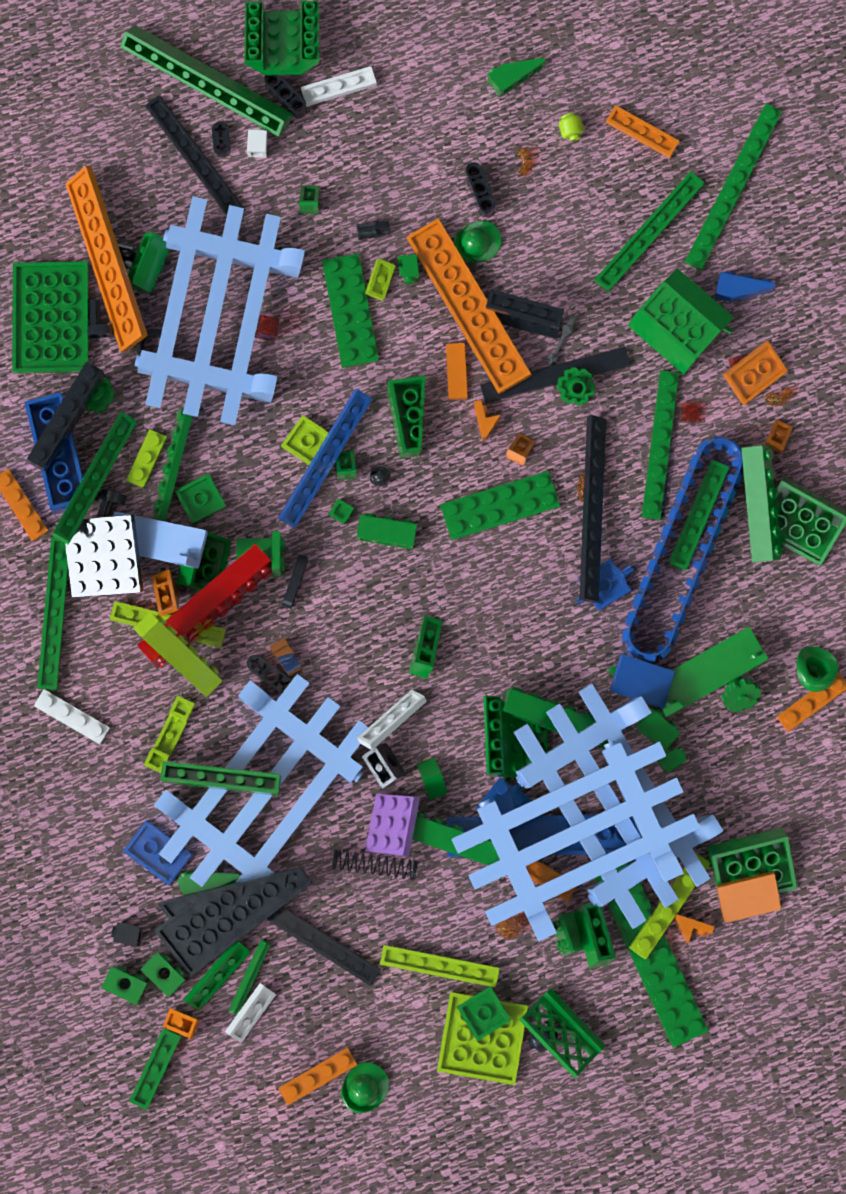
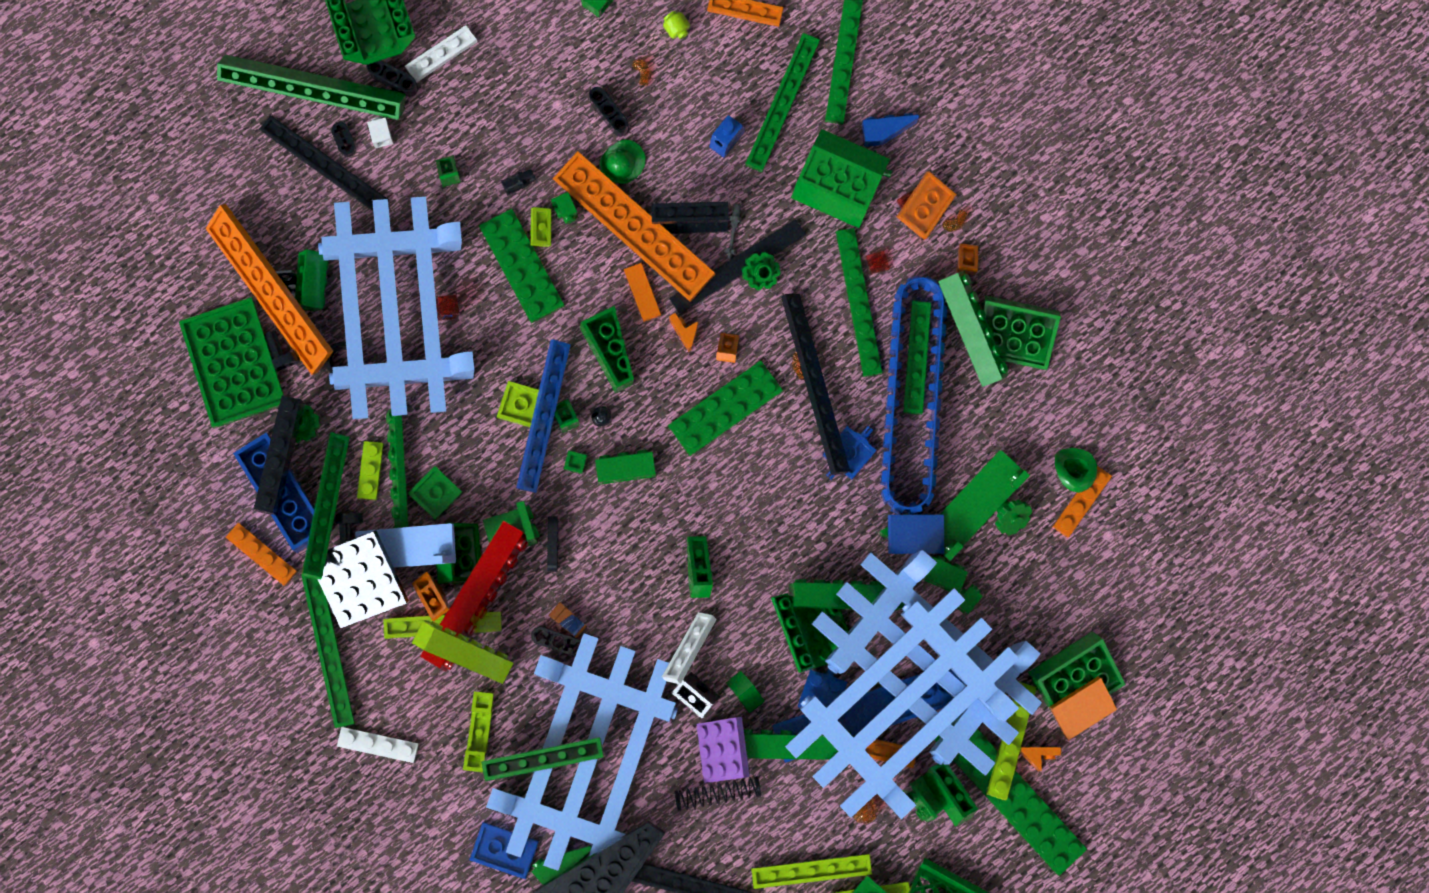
camera: 20 degrees left, 0 degrees up
(586, 246) = (727, 134): none -> blue torso

